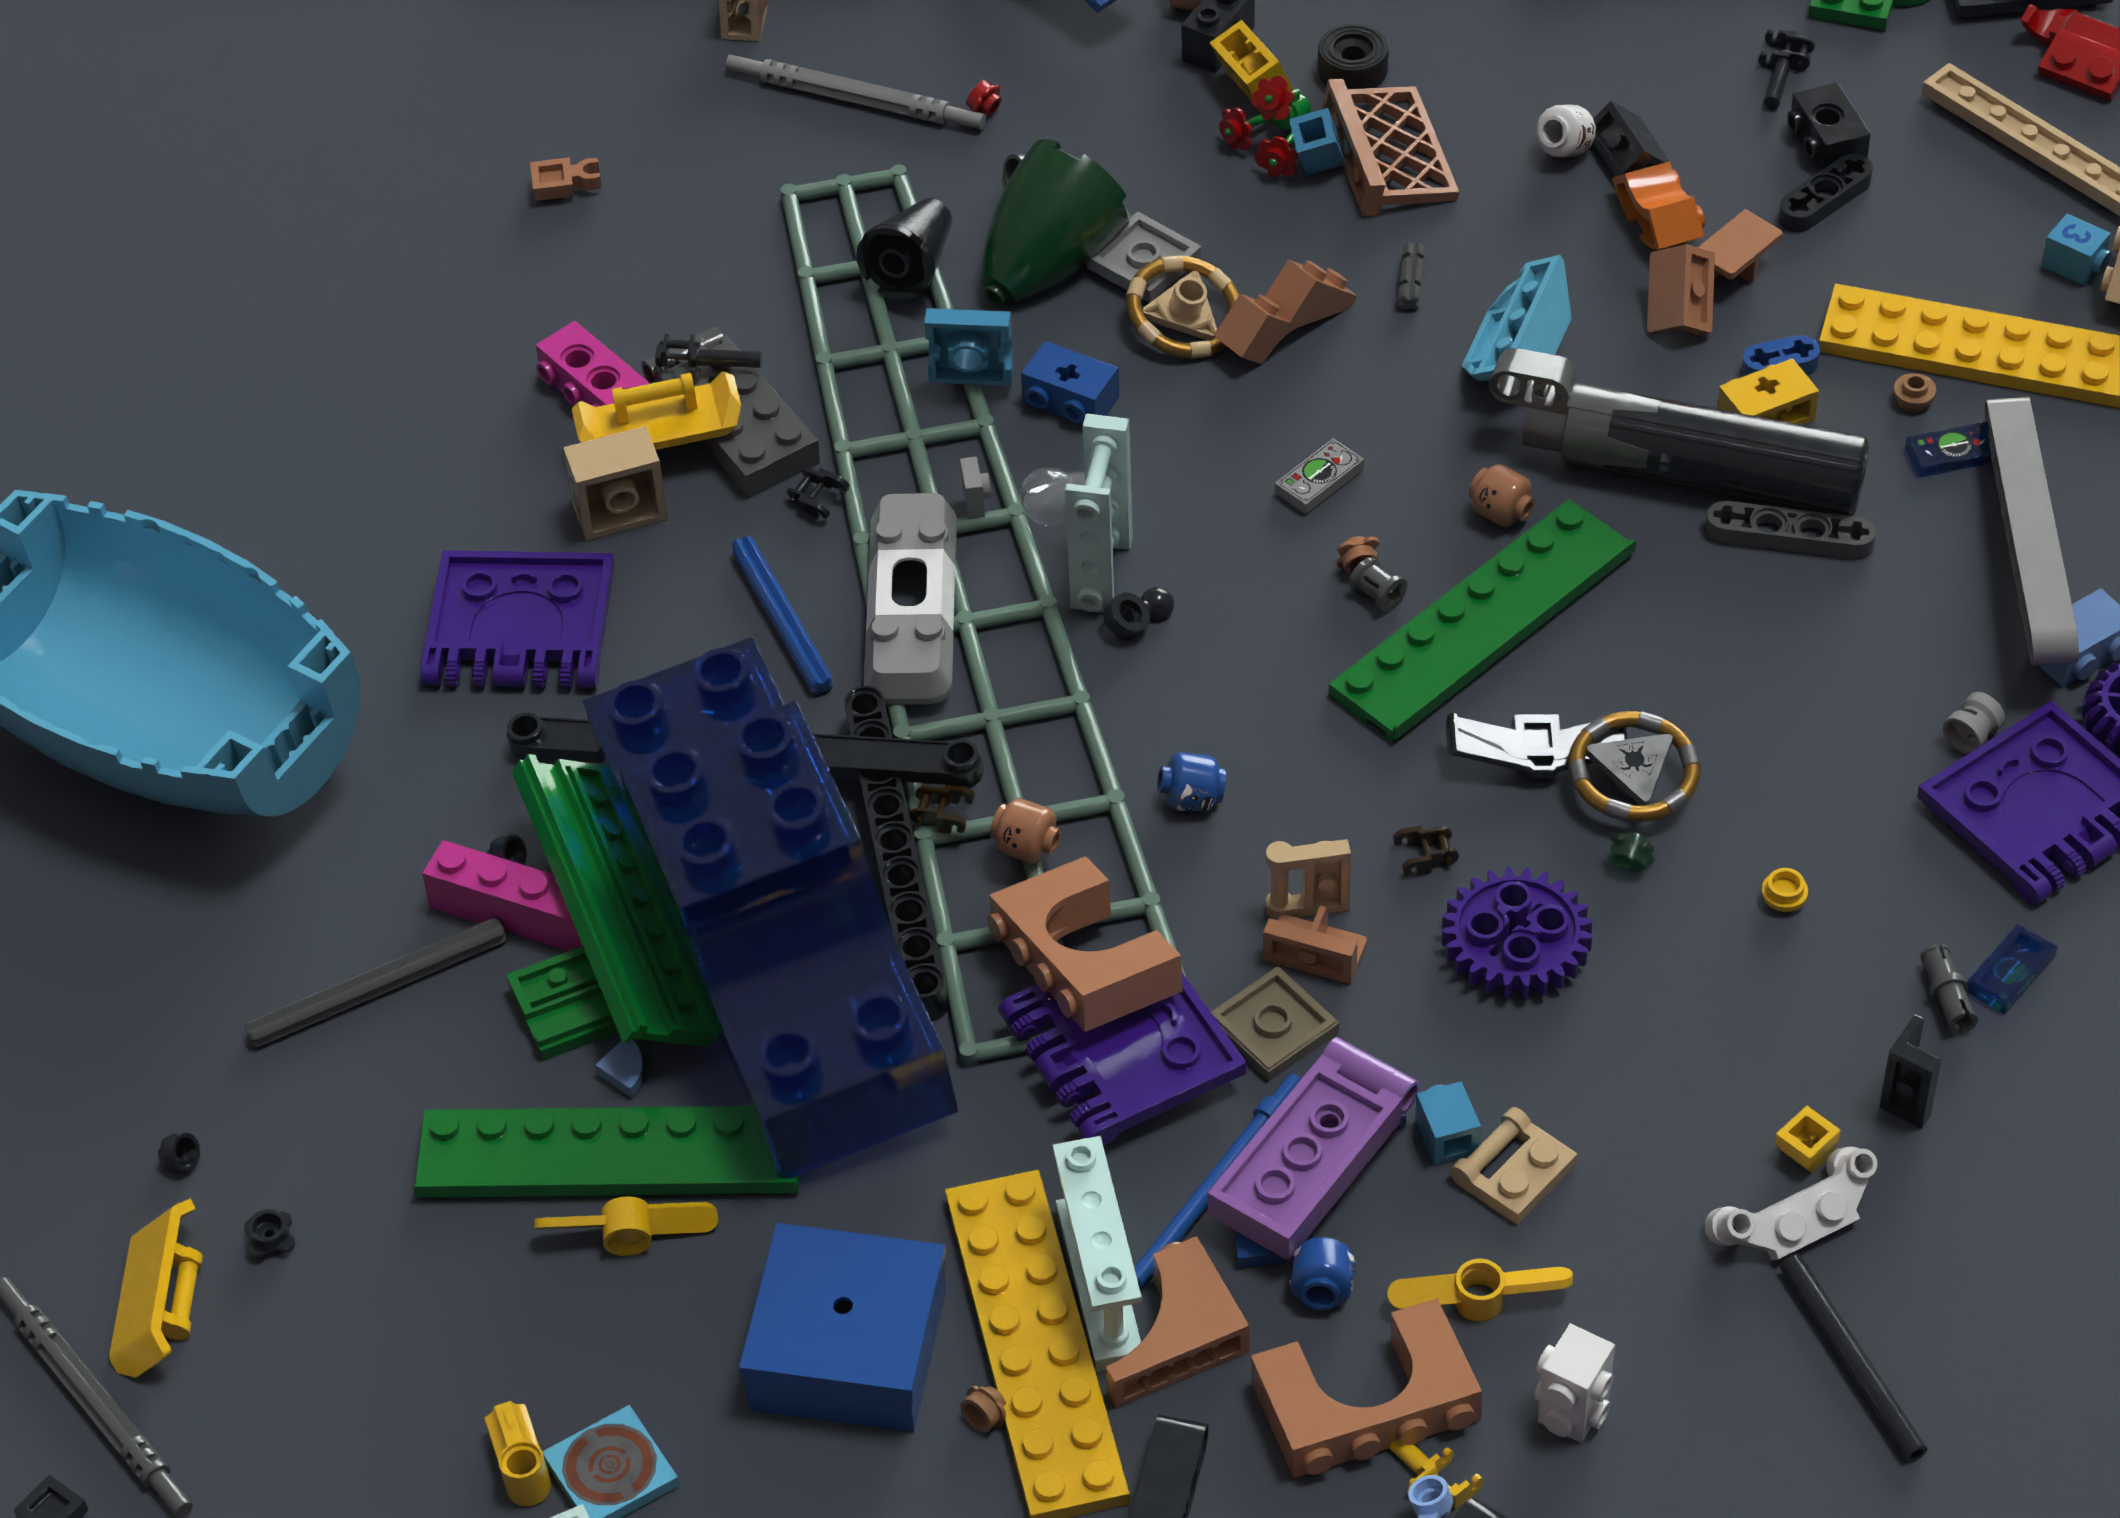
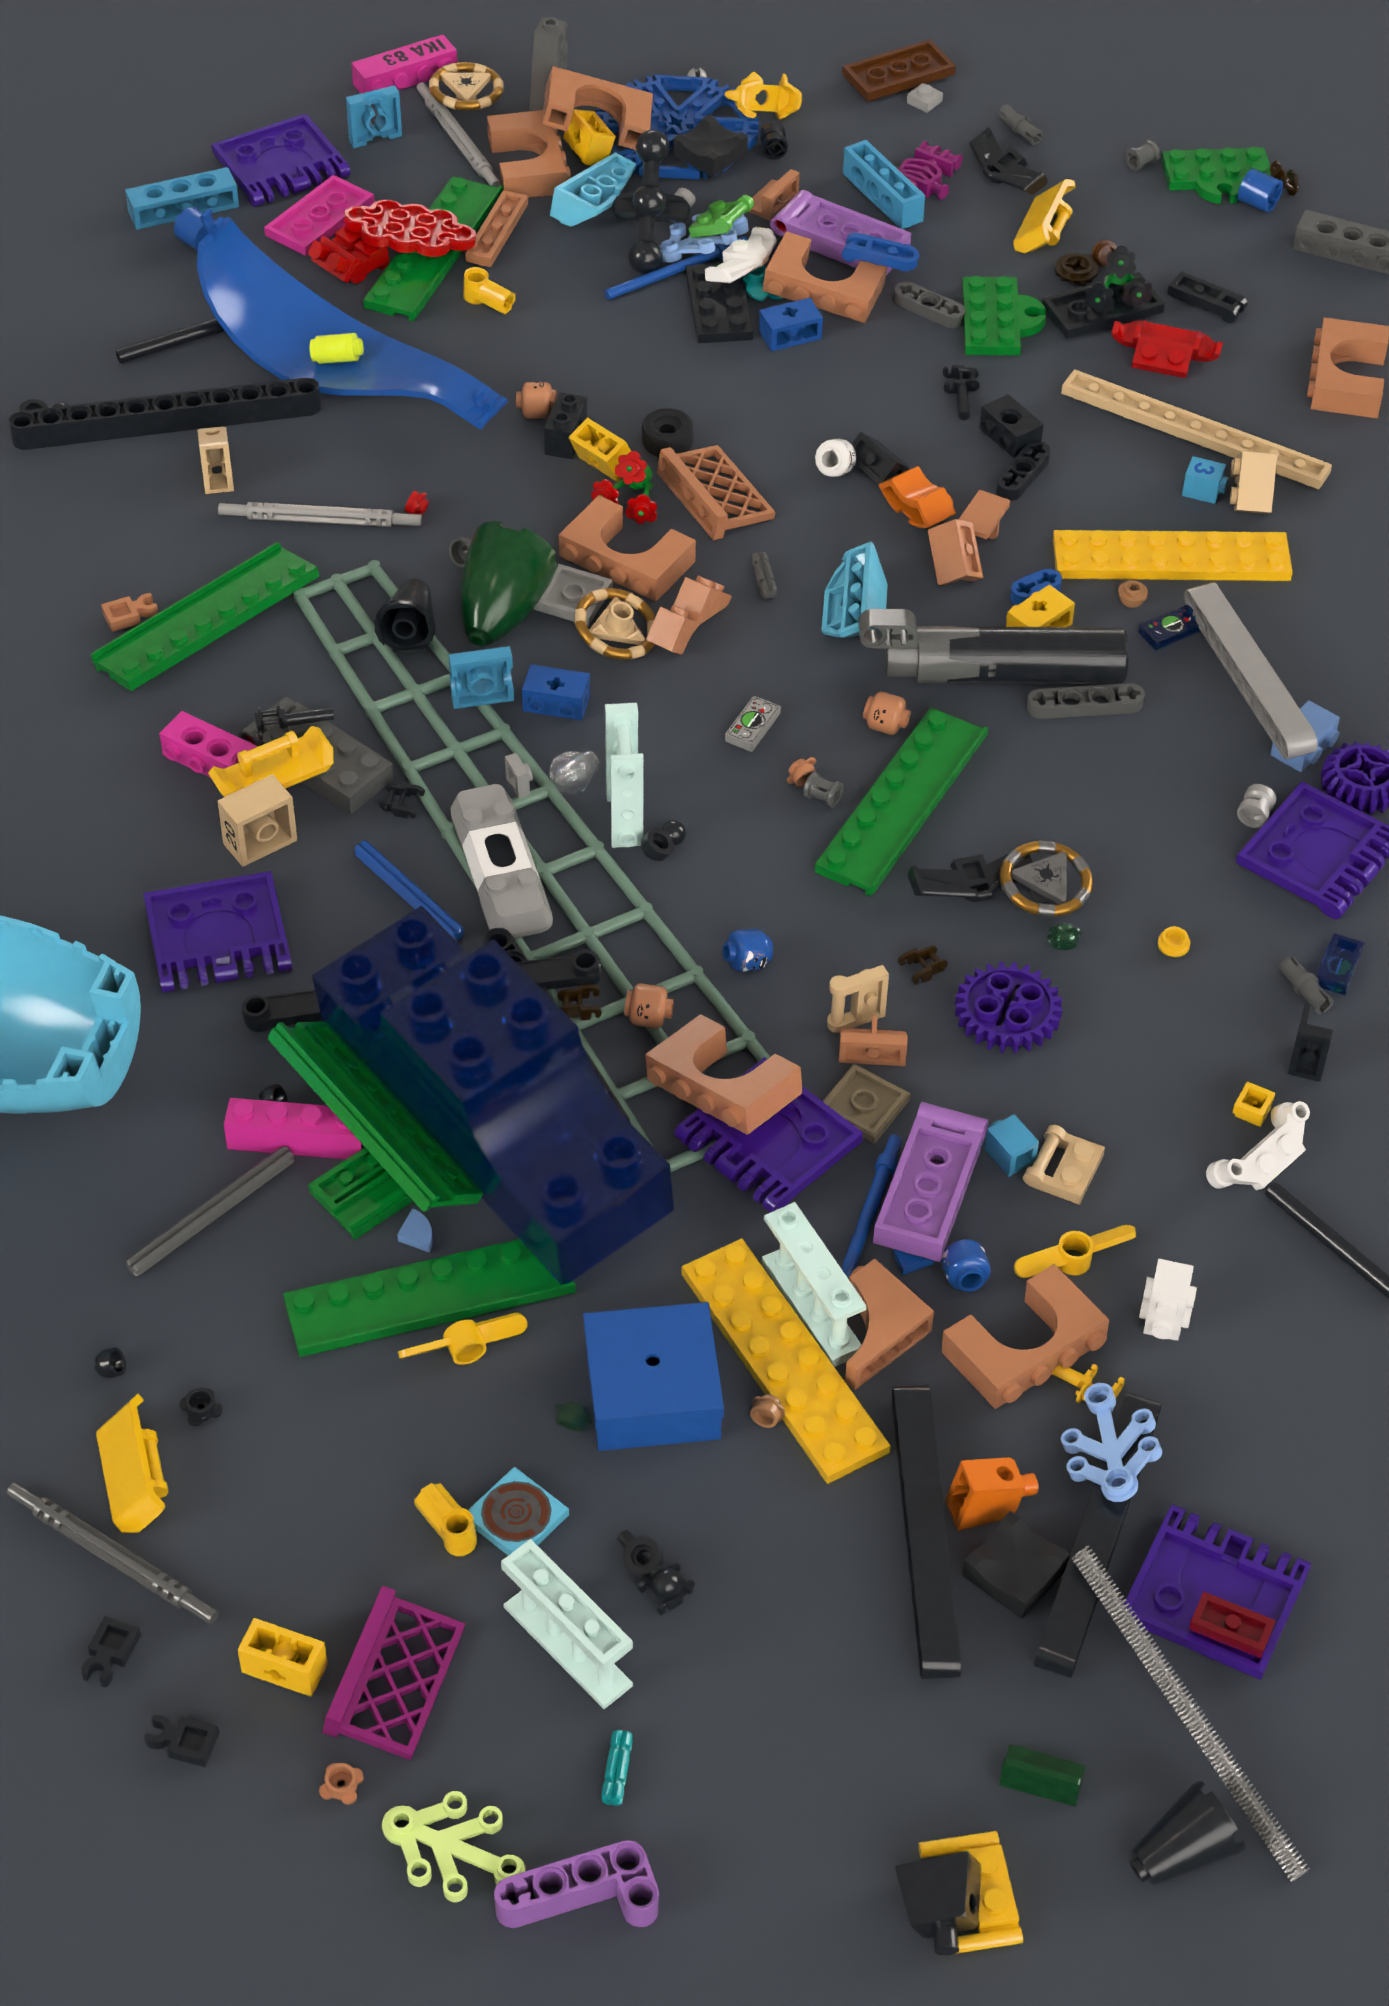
camera: 20 degrees left, 0 degrees up
(655, 200) = (203, 616): none -> green plate
(725, 1355) = (572, 1416): none -> clear green plate
(1249, 244) = (645, 572): none -> nougat arch
(1317, 141) = (668, 493): dark azure brick -> none

